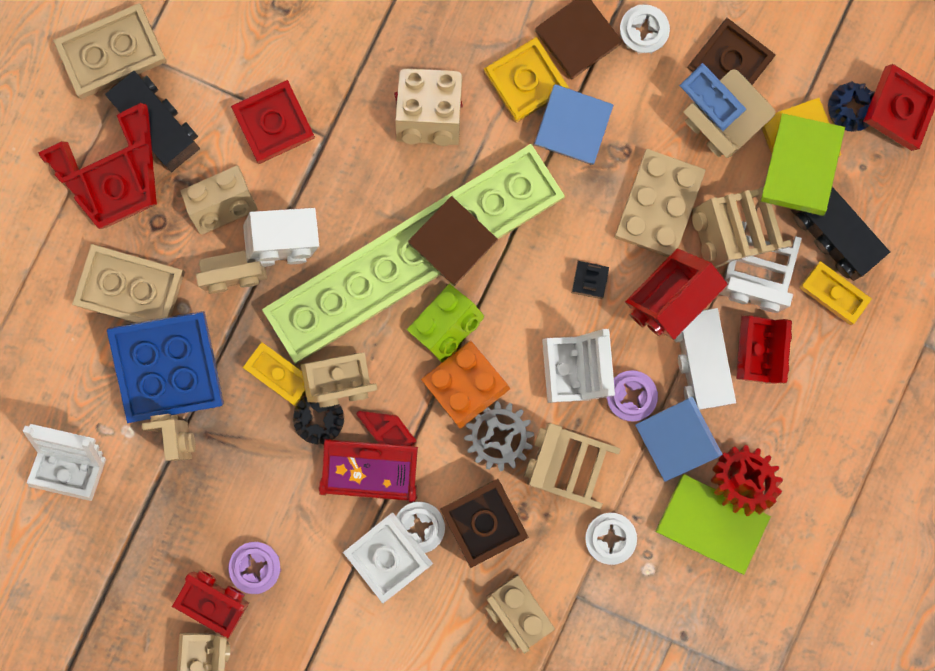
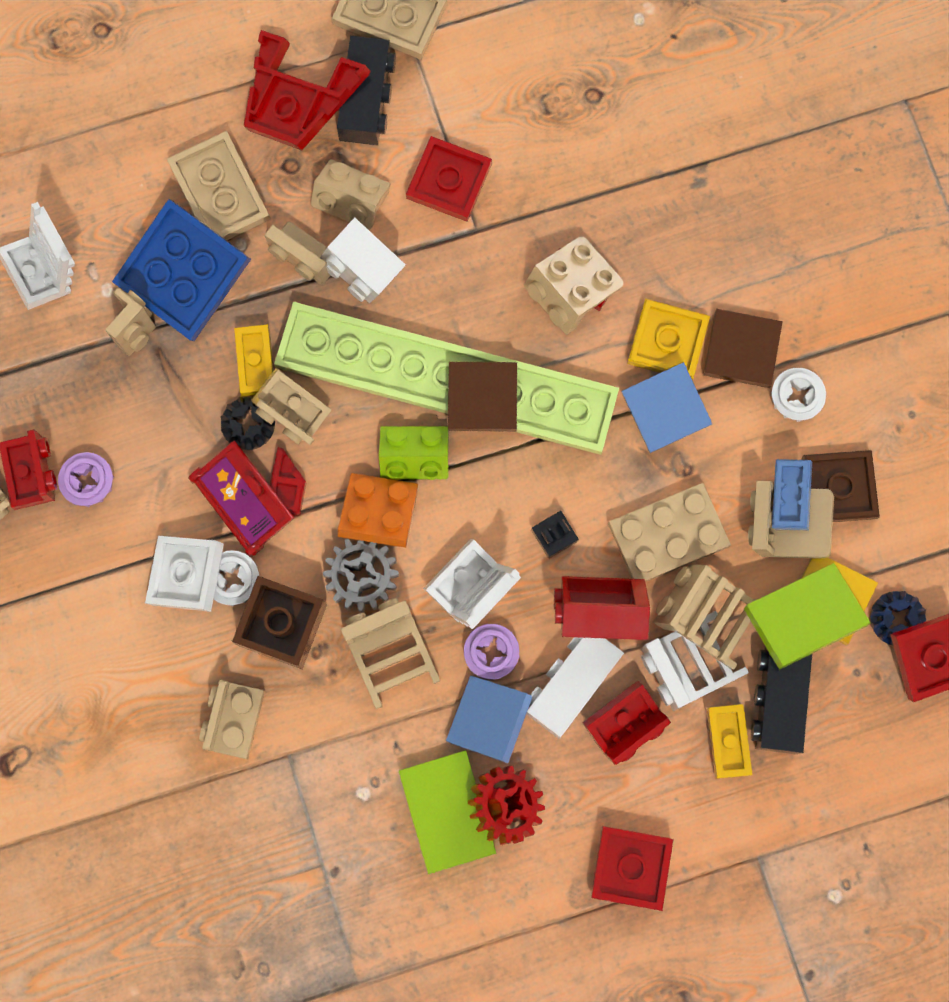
camera: 50 degrees right, 5 degrees down
(621, 550) = (343, 737): white gear -> none
(861, 435) = (632, 868): none -> red plate

